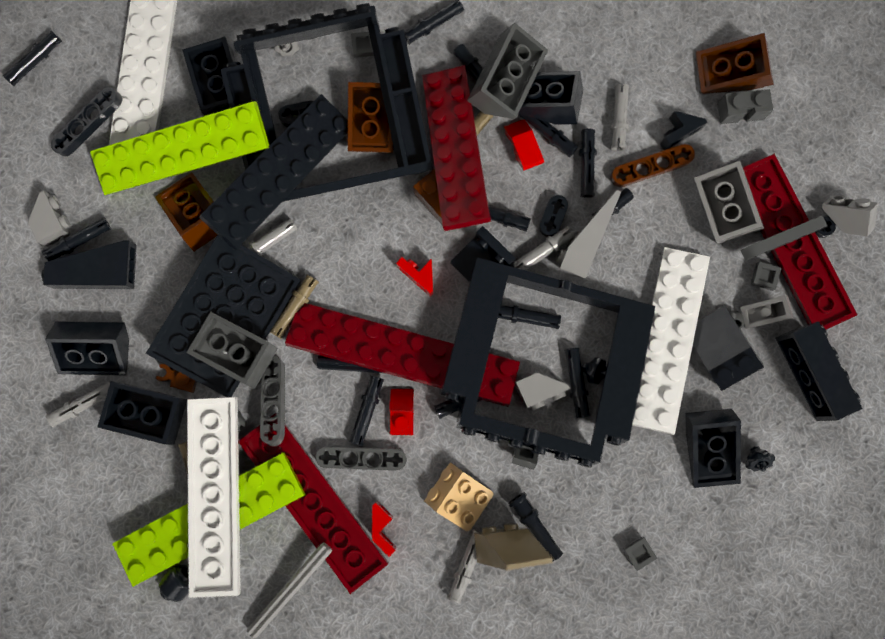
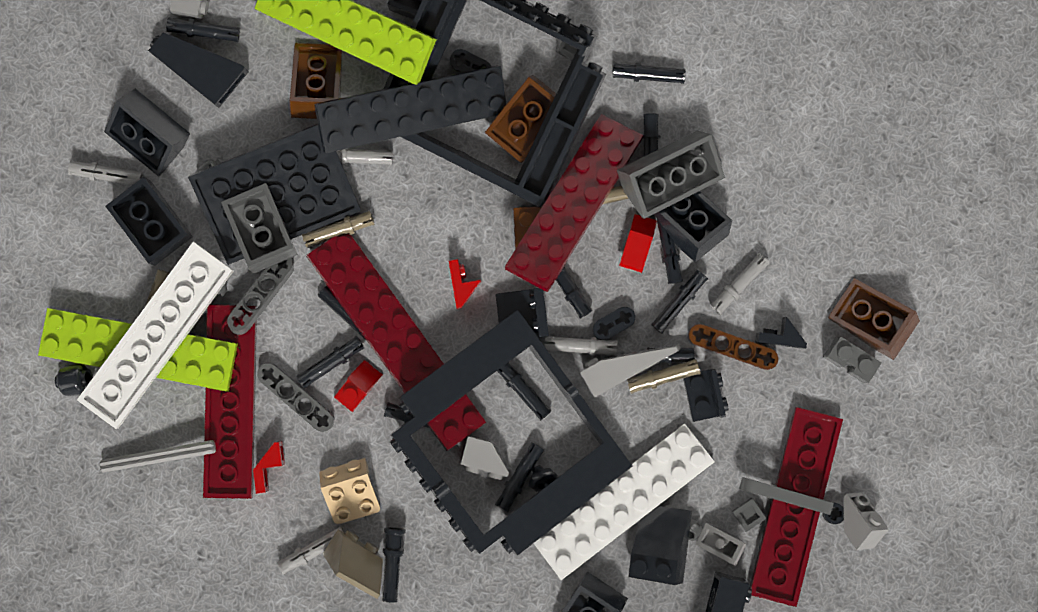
camera: 40 degrees right, 5 degrees up
(177, 379) = (197, 215): reddish brown plate -> none
(525, 457) = (425, 503): dark grey plate -> none
(616, 232) = (663, 376): none -> dark tan pin
(664, 212) = (705, 395): none -> black bracket
(729, 202) = (765, 430): light grey brick -> none

